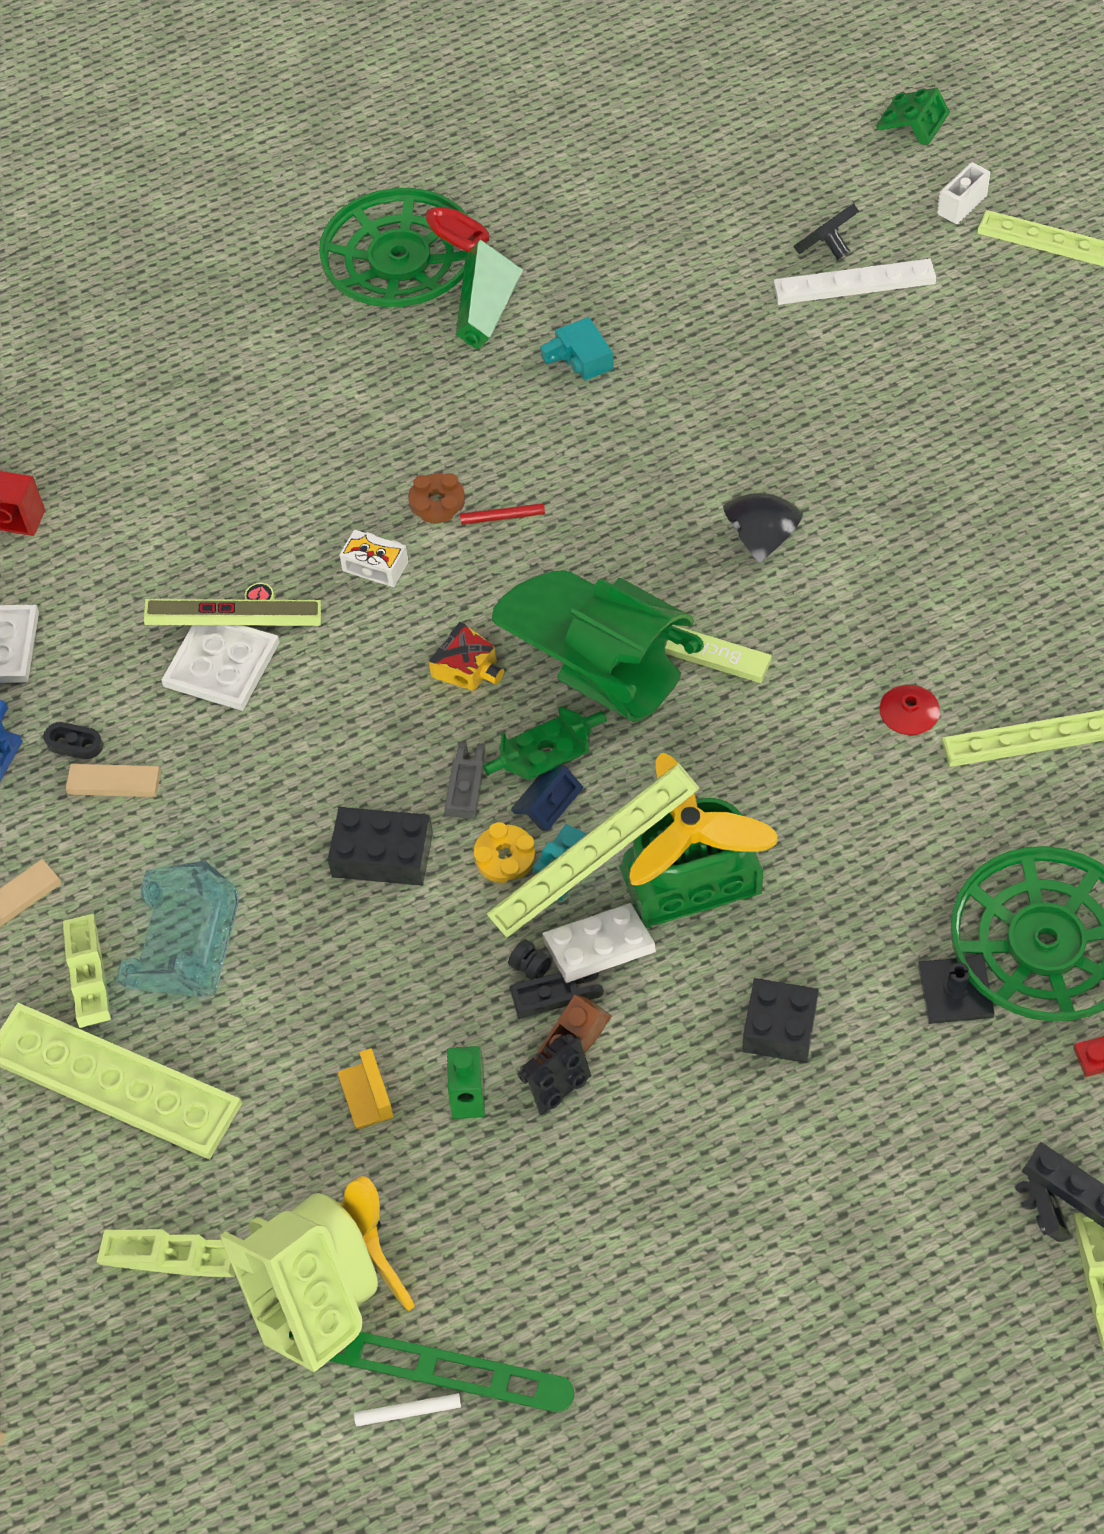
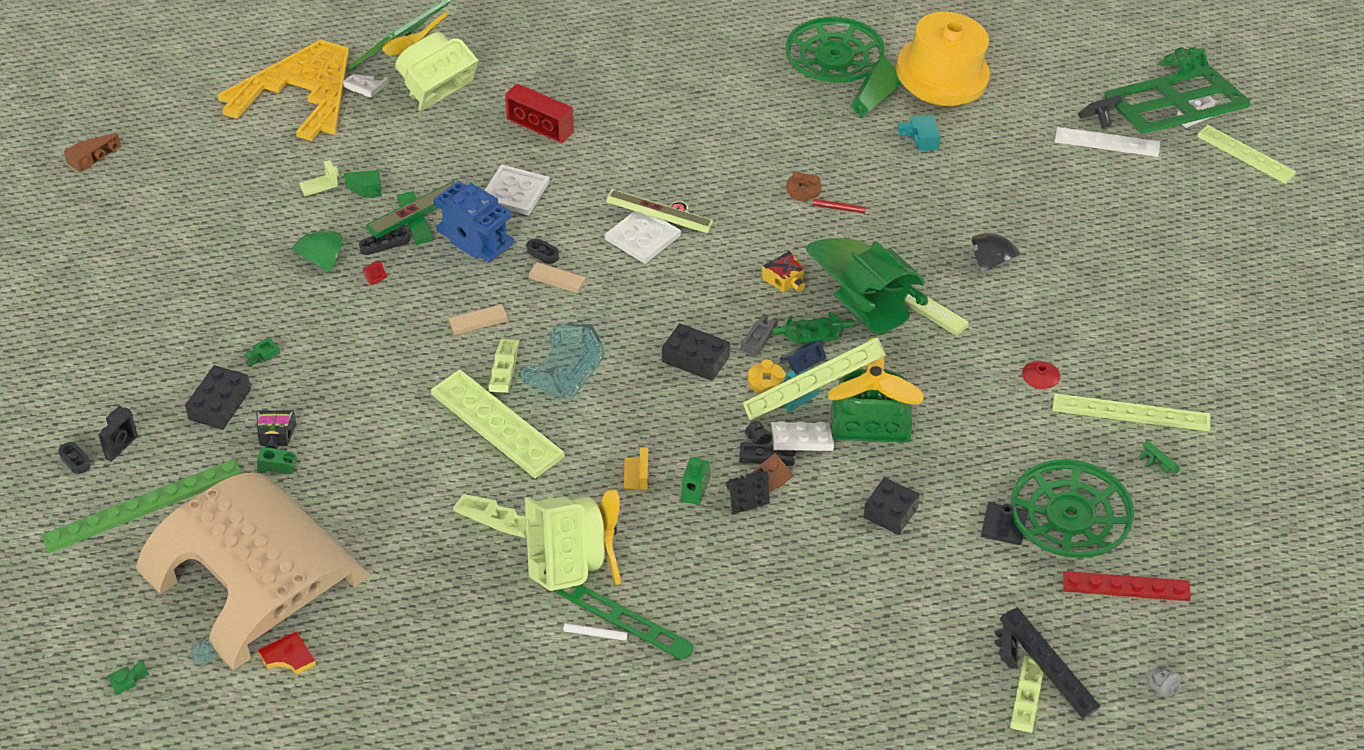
camera: 15 degrees right, 10 degrees down
(374, 558) = (753, 206): white brick -> none
(456, 227) = (873, 46): red piece -> none
(575, 221) = (945, 60): none -> yellow piece
(934, 184) = (1179, 100): none -> green window

